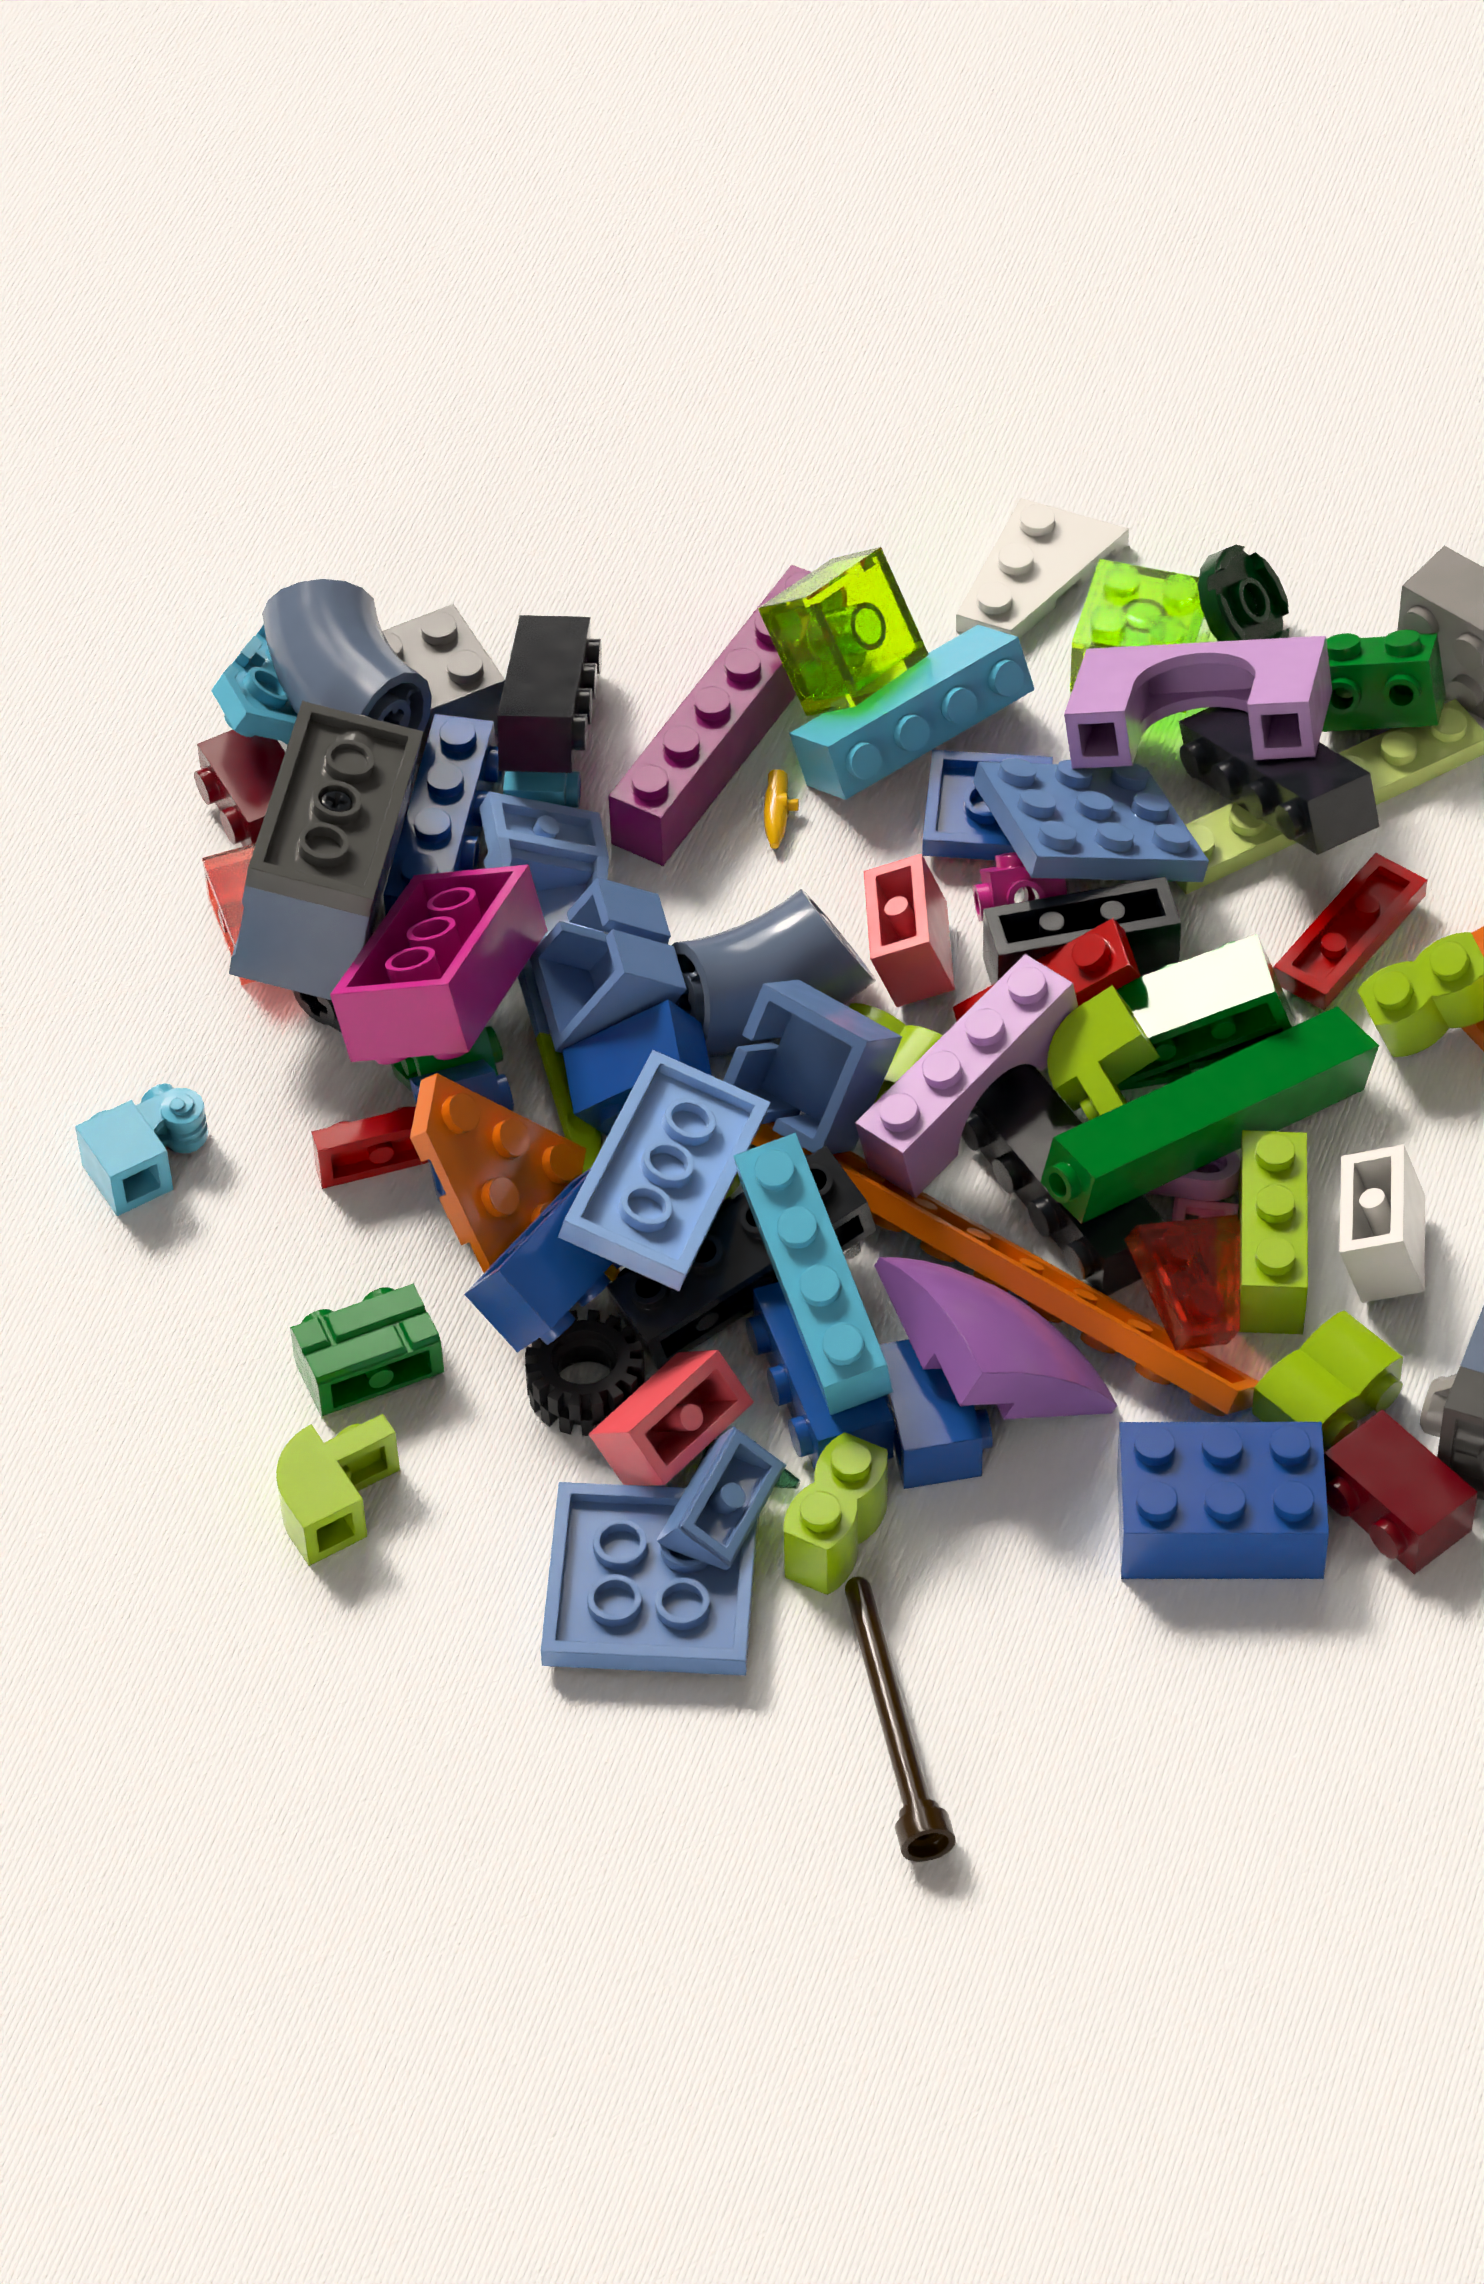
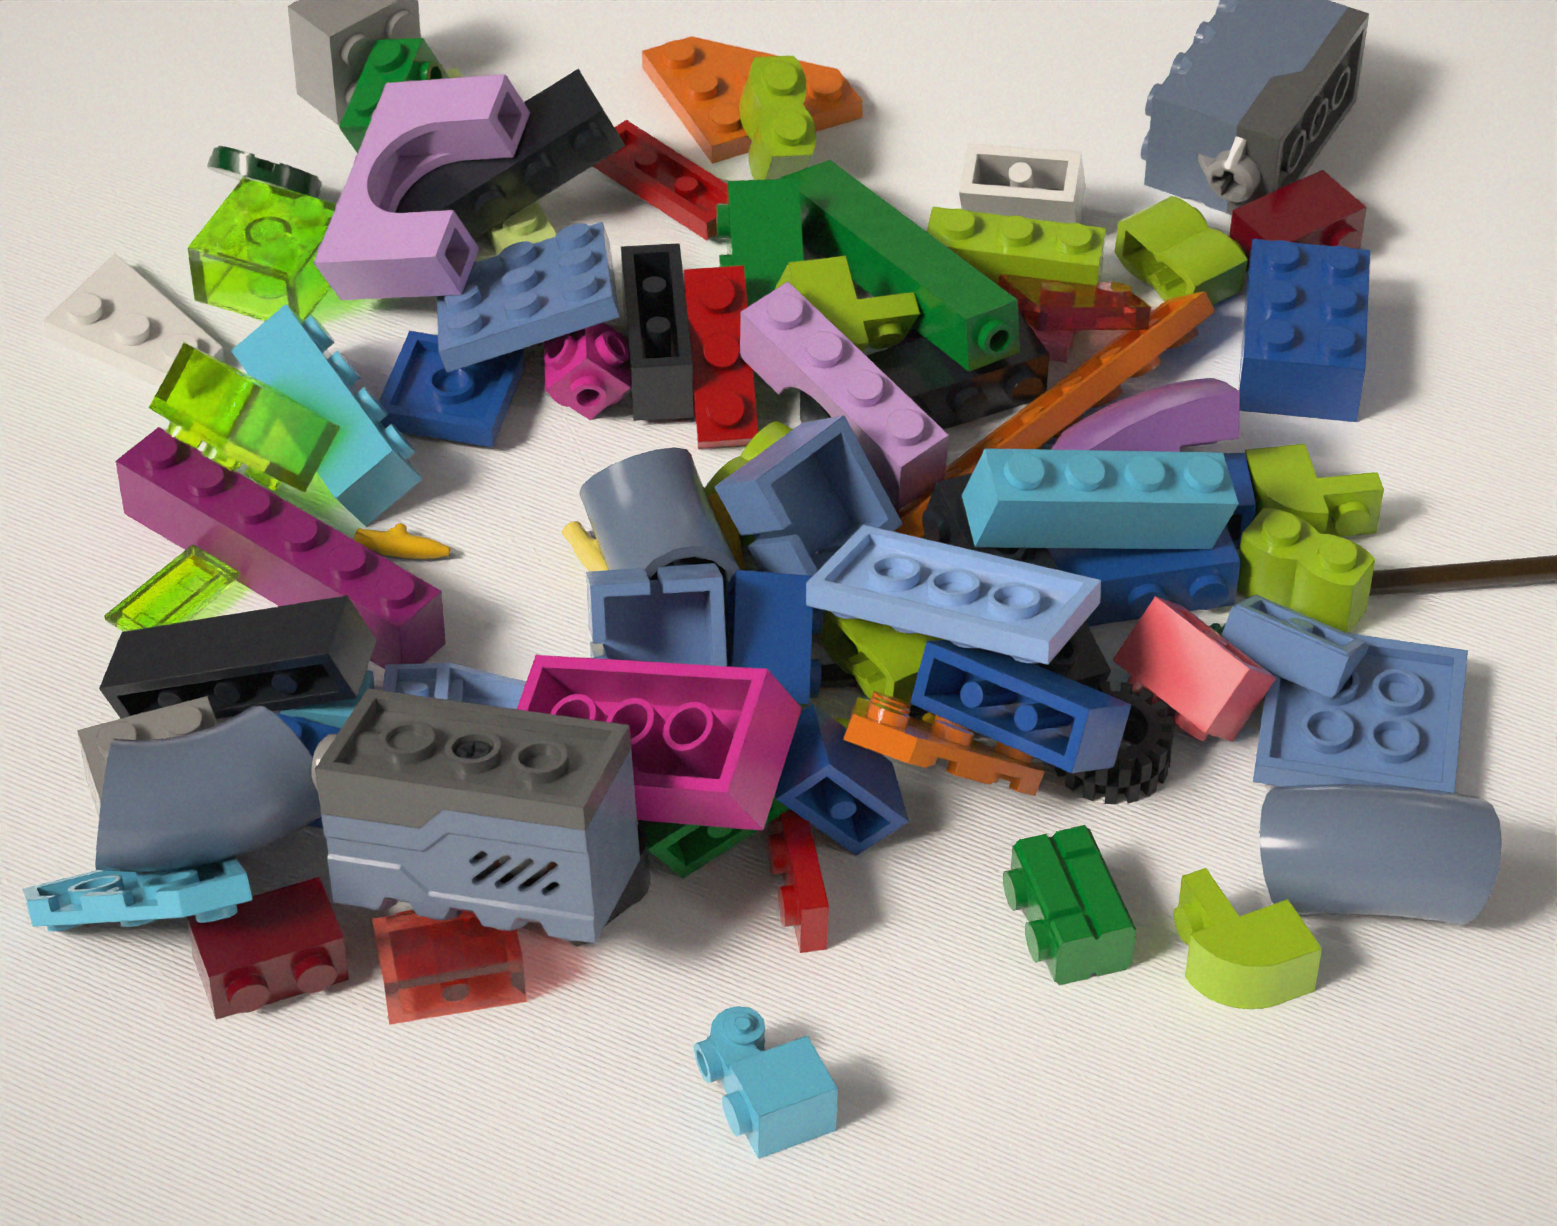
camera: 85 degrees left, 5 degrees down
(428, 1560) = (1380, 851): none -> sand blue brick
(664, 654) = (174, 592): none -> clear neon green tile
(908, 930) = (601, 432): coral brick -> none
(947, 1501) = (1333, 505): none -> lime brick

